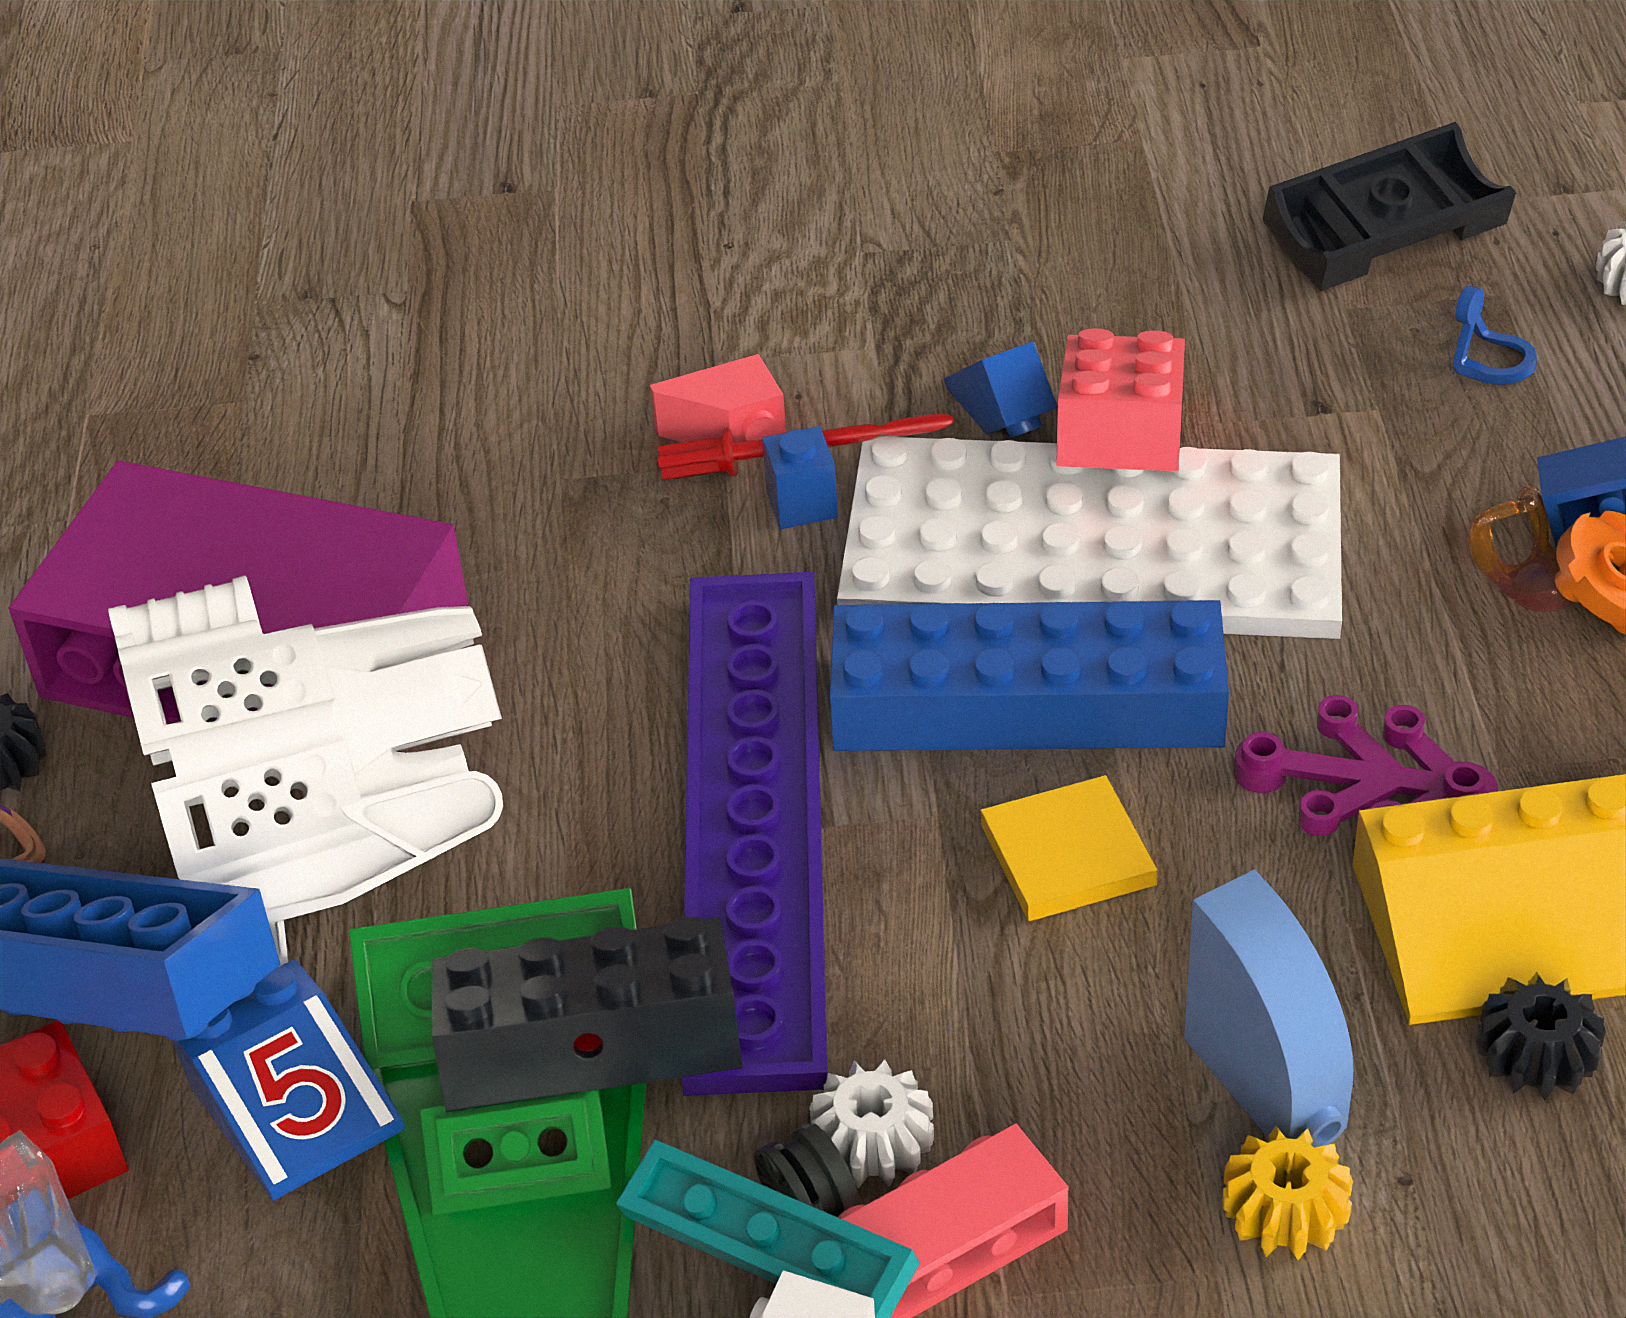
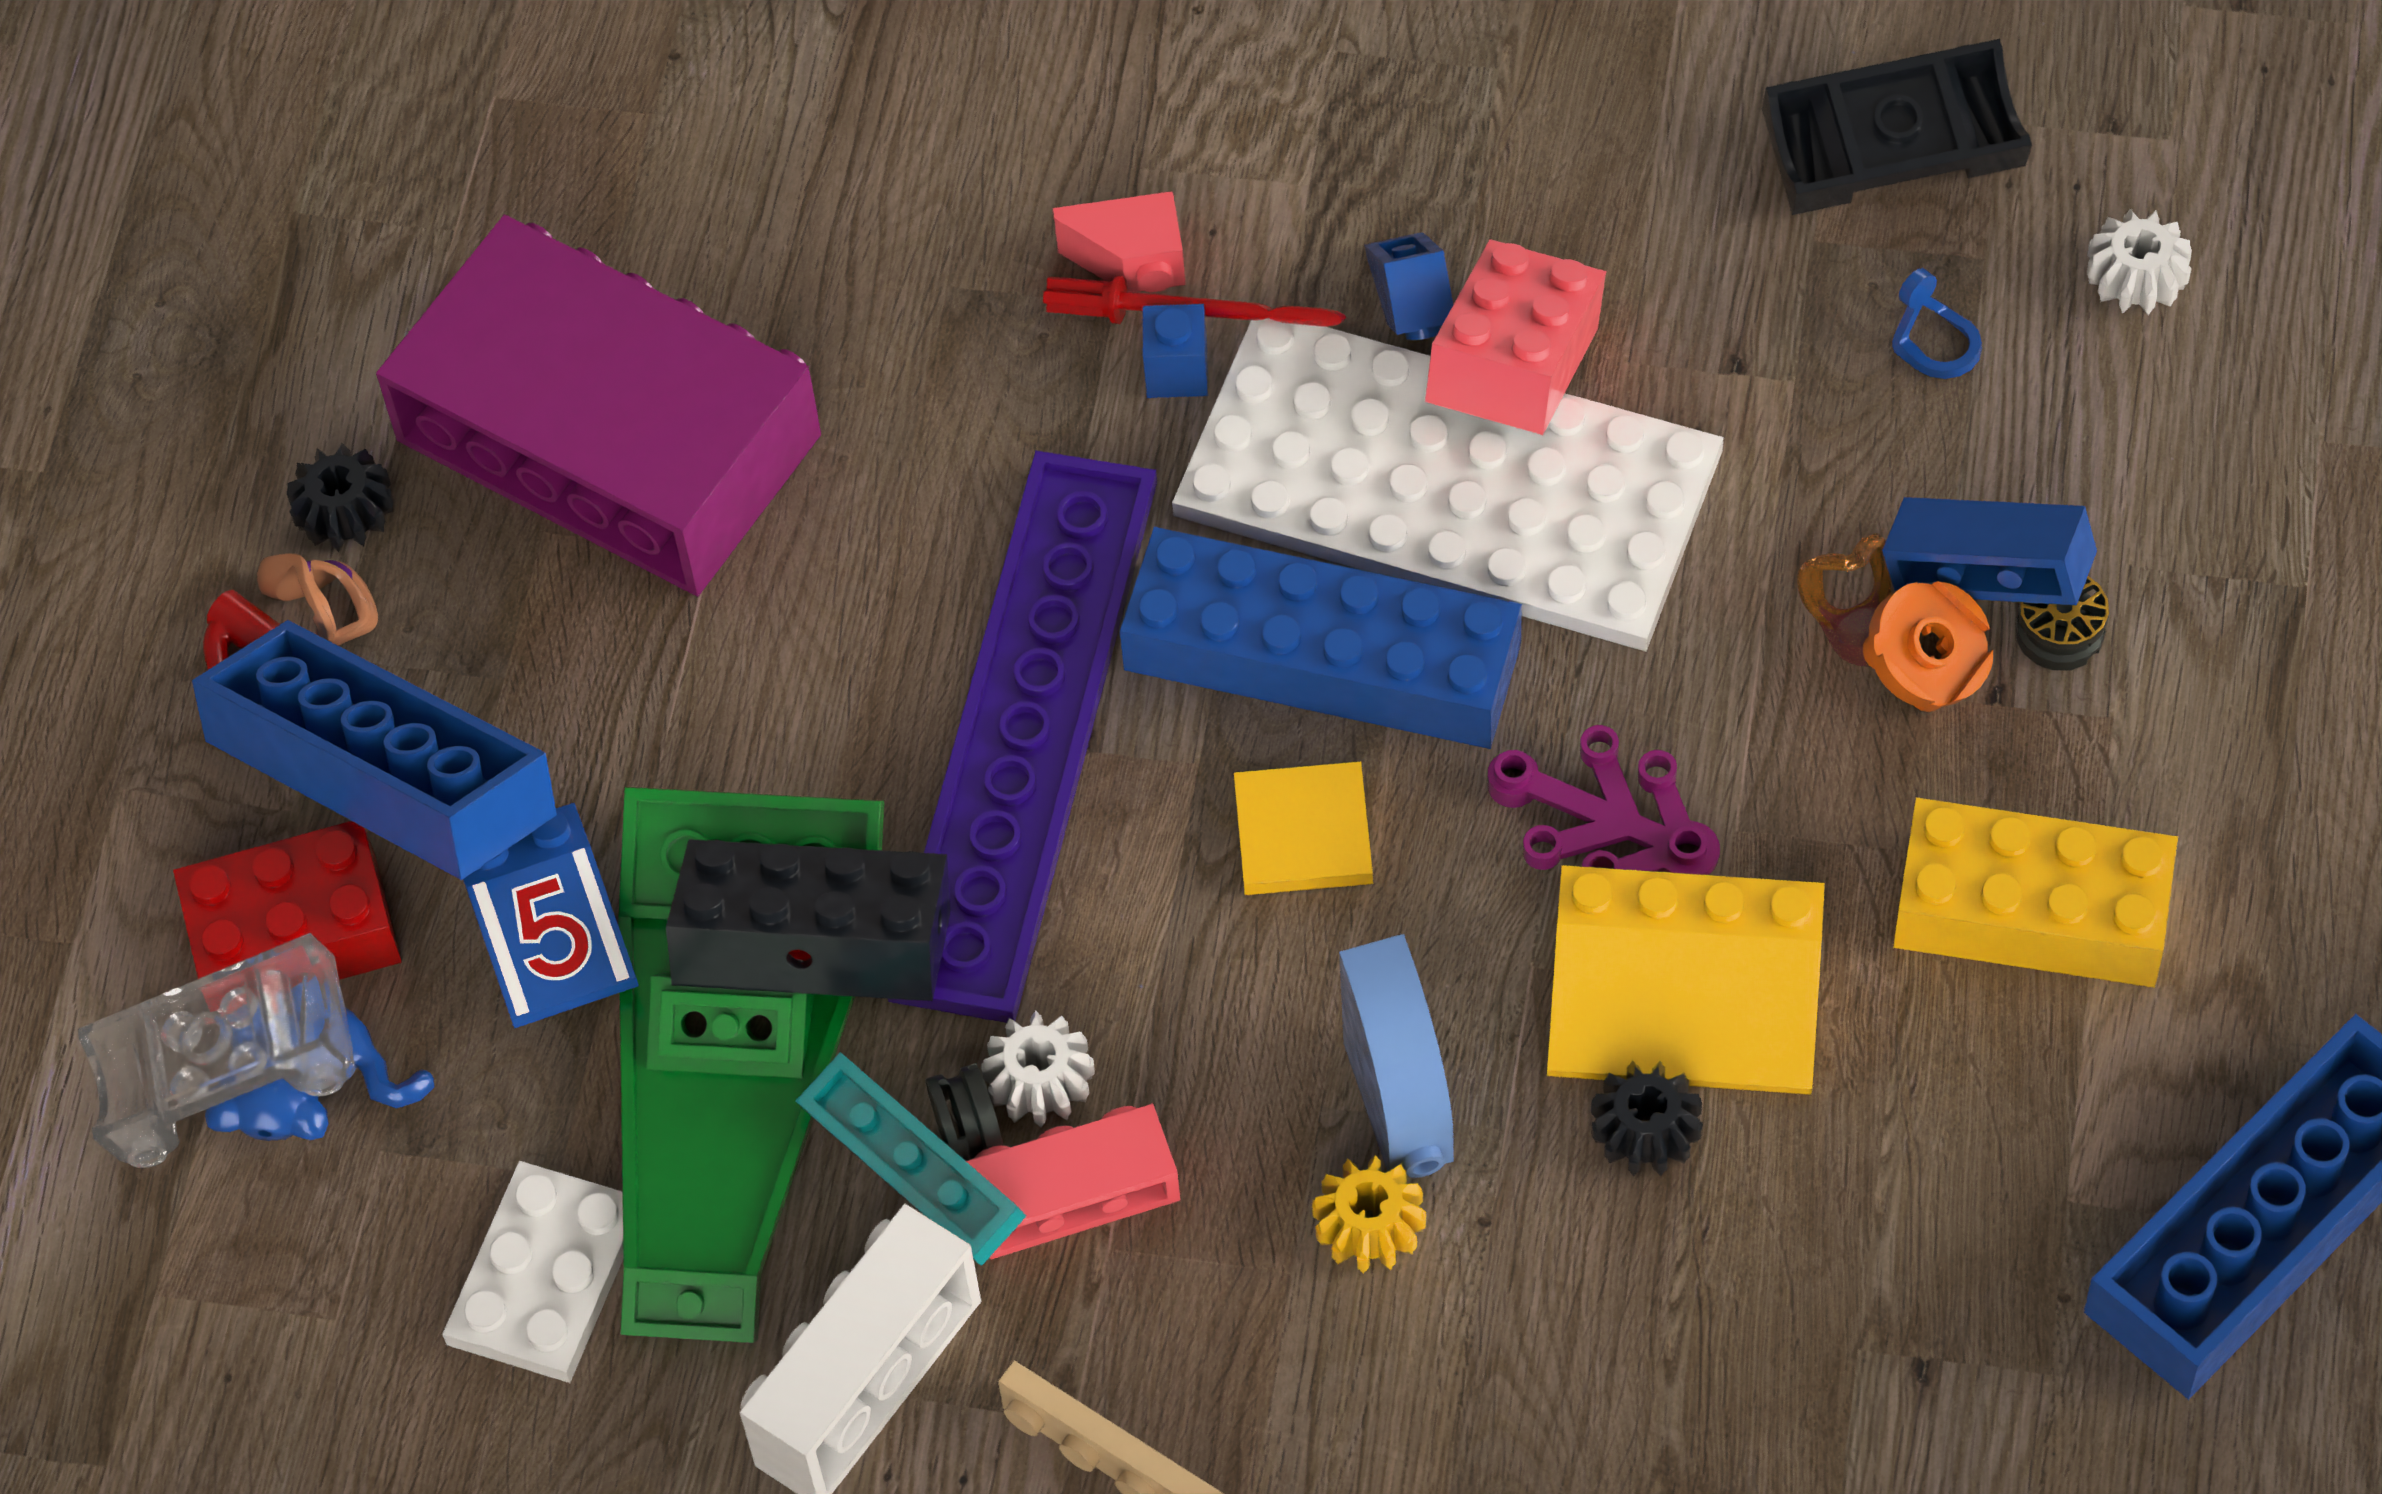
camera: 15 degrees right, 15 degrees up
(325, 727) = (629, 623): white piece -> none

